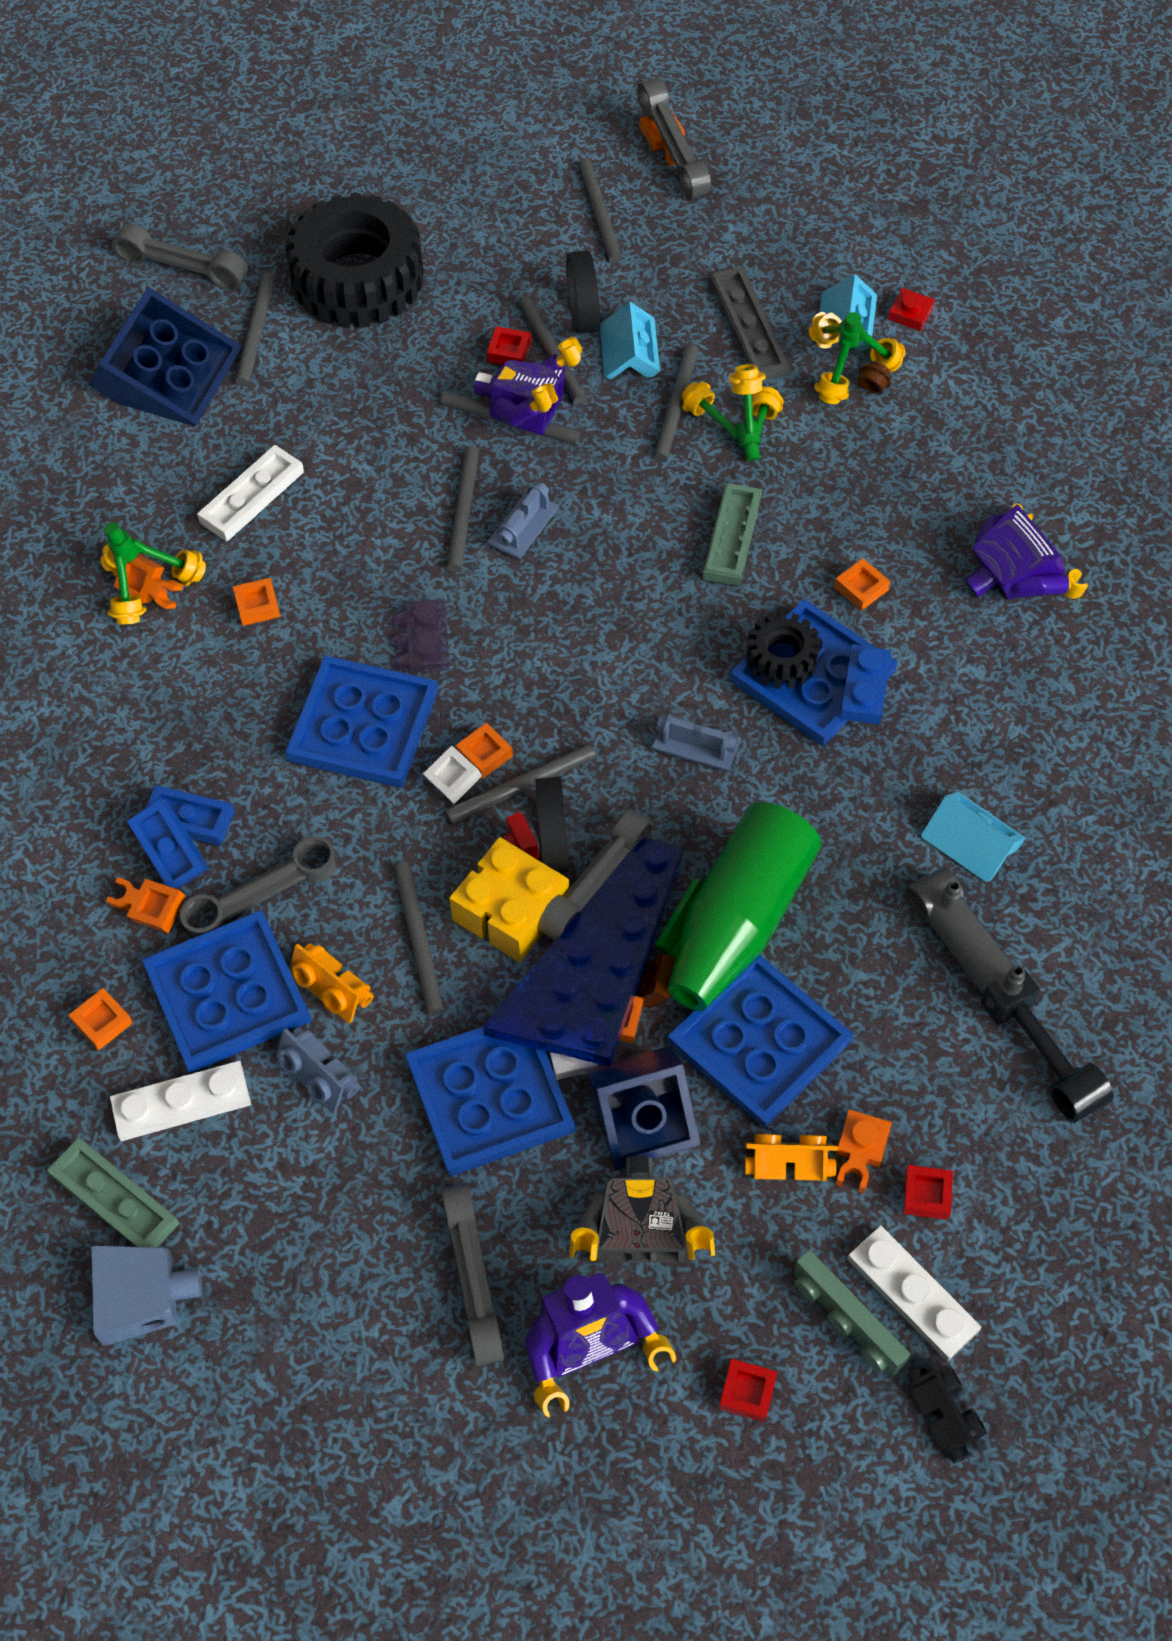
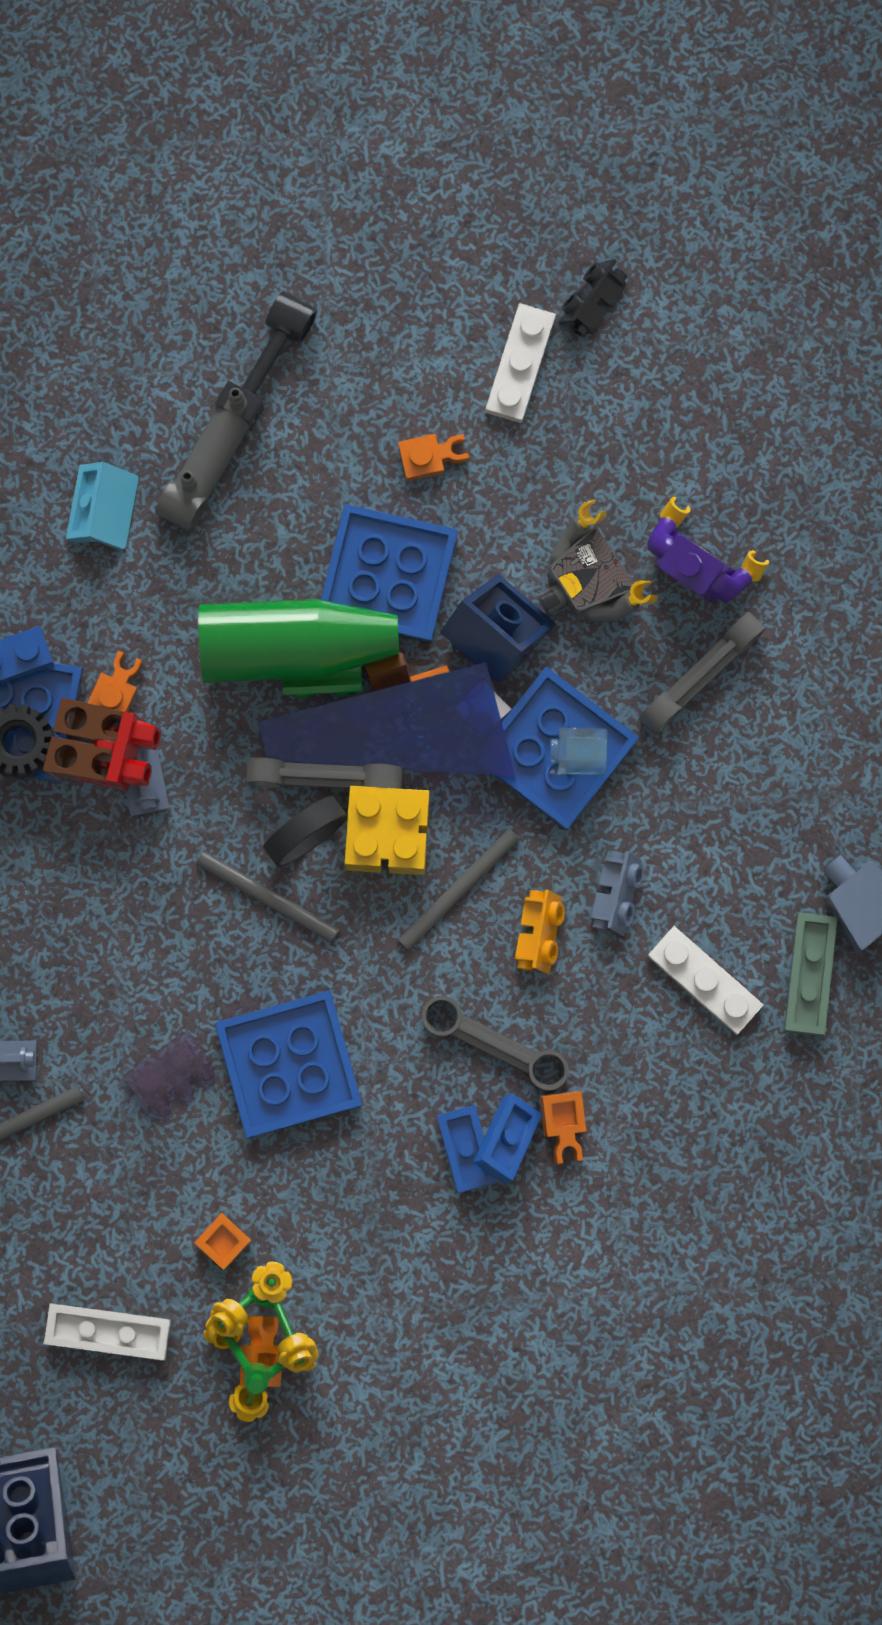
camera: 120 degrees left, 20 degrees up
(100, 1019) = (682, 1088): orange plate -> none
(180, 579) = (268, 1291): none -> yellow plant
(226, 991) = (598, 1006): blue plate -> none
(452, 774) = (297, 953): white plate -> none
(465, 1097) = (580, 751): none -> clear light blue brick
(485, 749) = (257, 942): orange plate -> none
(520, 834) = (328, 857): red plate -> none
(736, 702) = (99, 746): none -> hips
(748, 1390) = (664, 436): red plate -> none
(788, 757) = (115, 691): none -> orange plate
(808, 1156) = (460, 486): light orange hinge -> none
(849, 1315) = (569, 395): sand green plate -> none
(928, 1192) = (438, 388): red plate -> none

